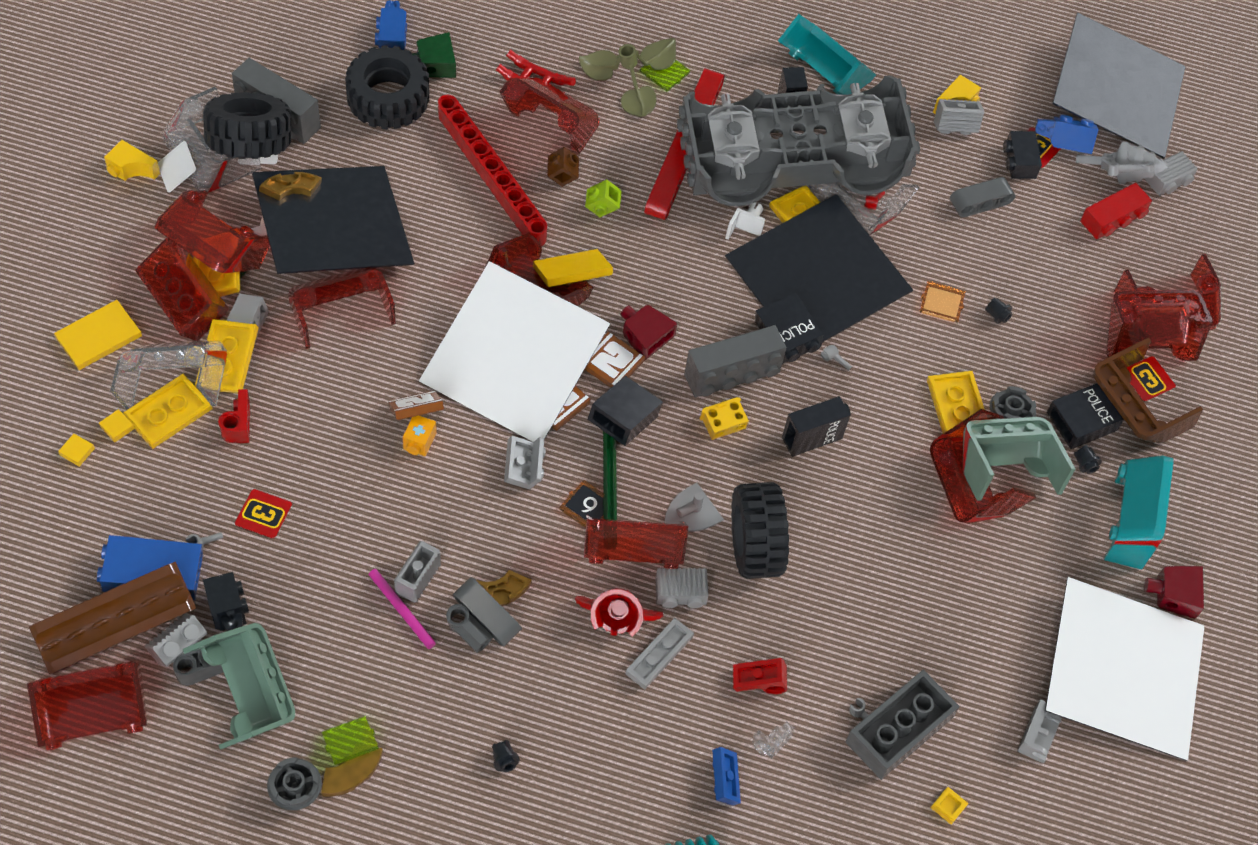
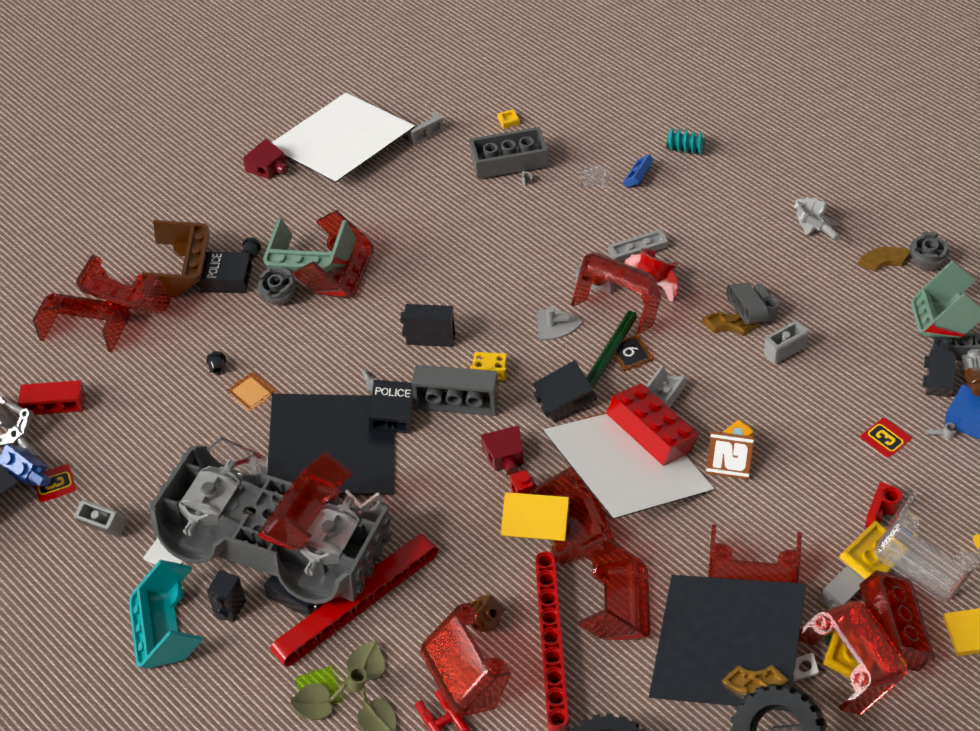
camera: 140 degrees left, 10 degrees down
(168, 411) = (949, 535): yellow tile -> none
(350, 740) = (879, 271): clear neon green piece -> none
(402, 609) = (810, 346): dark pink bar -> none
(442, 228) = (625, 592): none -> clear red windscreen
(460, 781) = (811, 216): none -> light grey bar
(504, 757) = (777, 227): black hose -> none
(512, 403) = (652, 424): none -> red brick
(603, 198) = (469, 567): lime brick -> none
(603, 296) = (521, 482): none -> red brick
(613, 360) = (539, 445): tile -> none
(760, 530) = (527, 260): black tyre -> none
(765, 674) = (578, 206): red plate -> none
(770, 116) = (303, 502): none -> clear red windscreen
(954, 397) = (305, 317): yellow tile -> none
(960, 90) = (82, 544): yellow arch -> none
(982, 197) = (145, 450): dark grey beam -> none
(1022, 155) = (77, 470): black brick -> none
(1142, 510) = (245, 185): teal windscreen -> none

